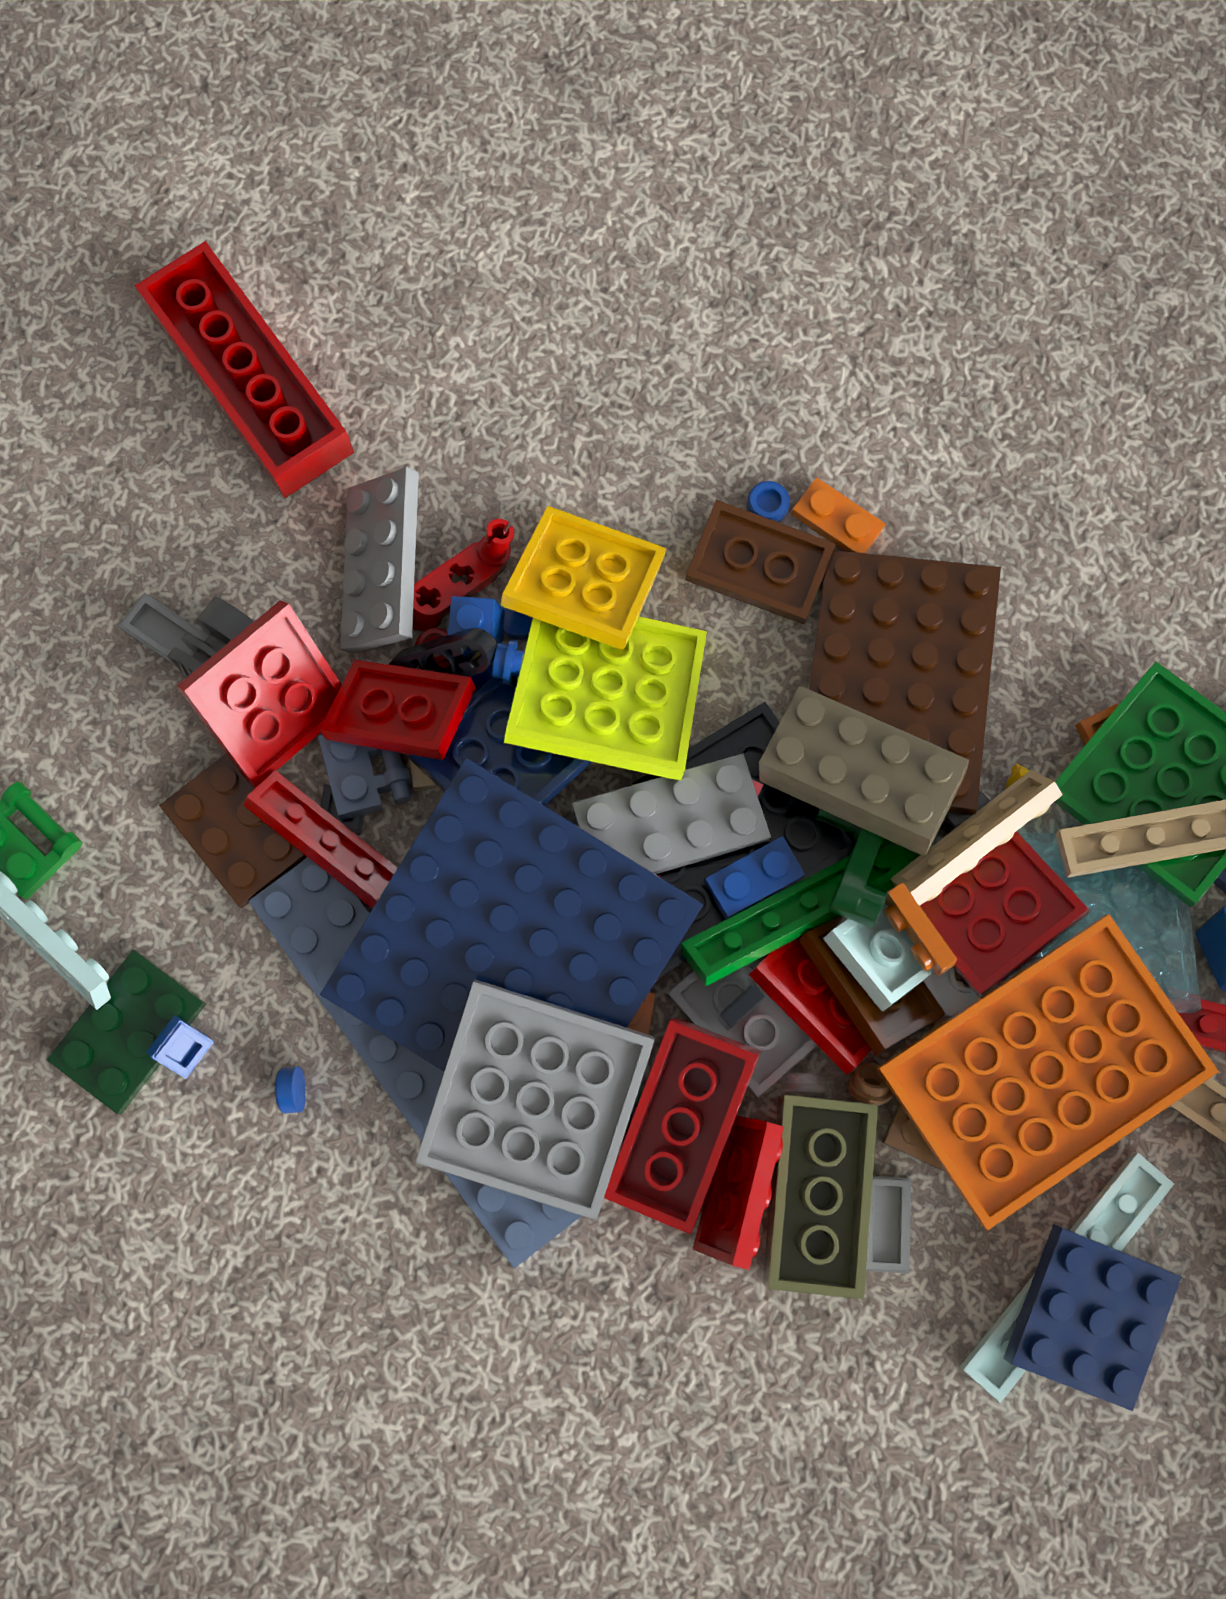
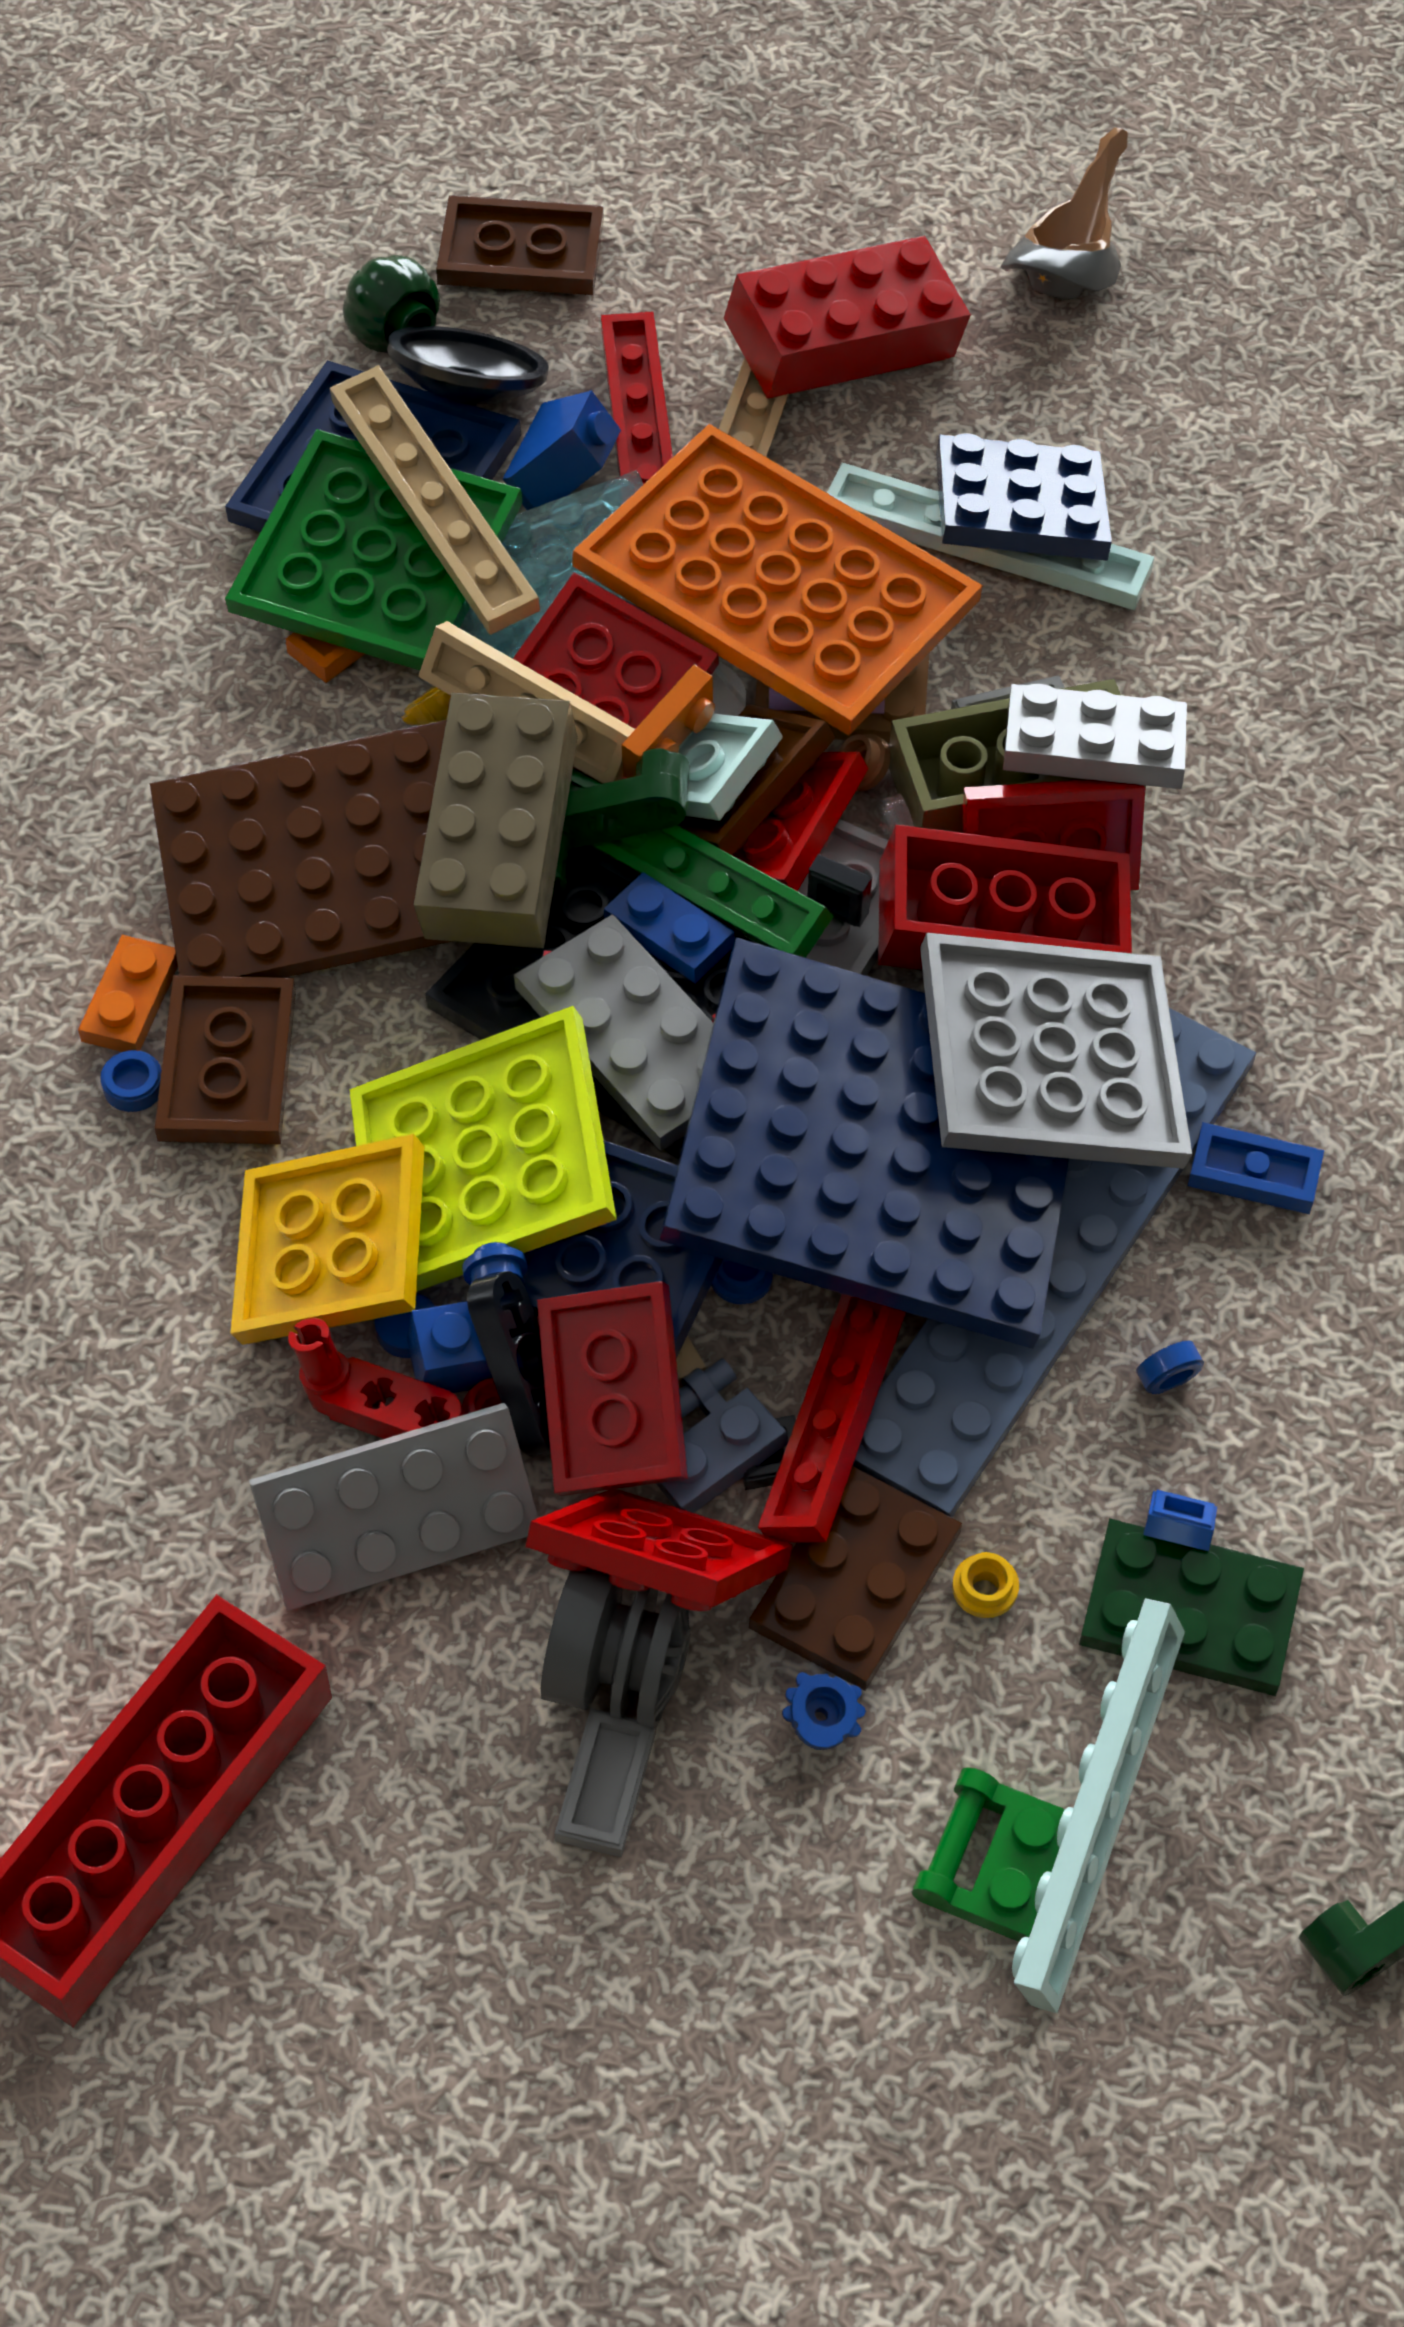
camera: 110 degrees left, 20 degrees down
(140, 770) = (833, 1699): none -> blue animal
(180, 904) = (991, 1568): none -> yellow plate
(419, 1223) = (1256, 1168): none -> blue plate
(798, 1251) = (1096, 736): none -> plate

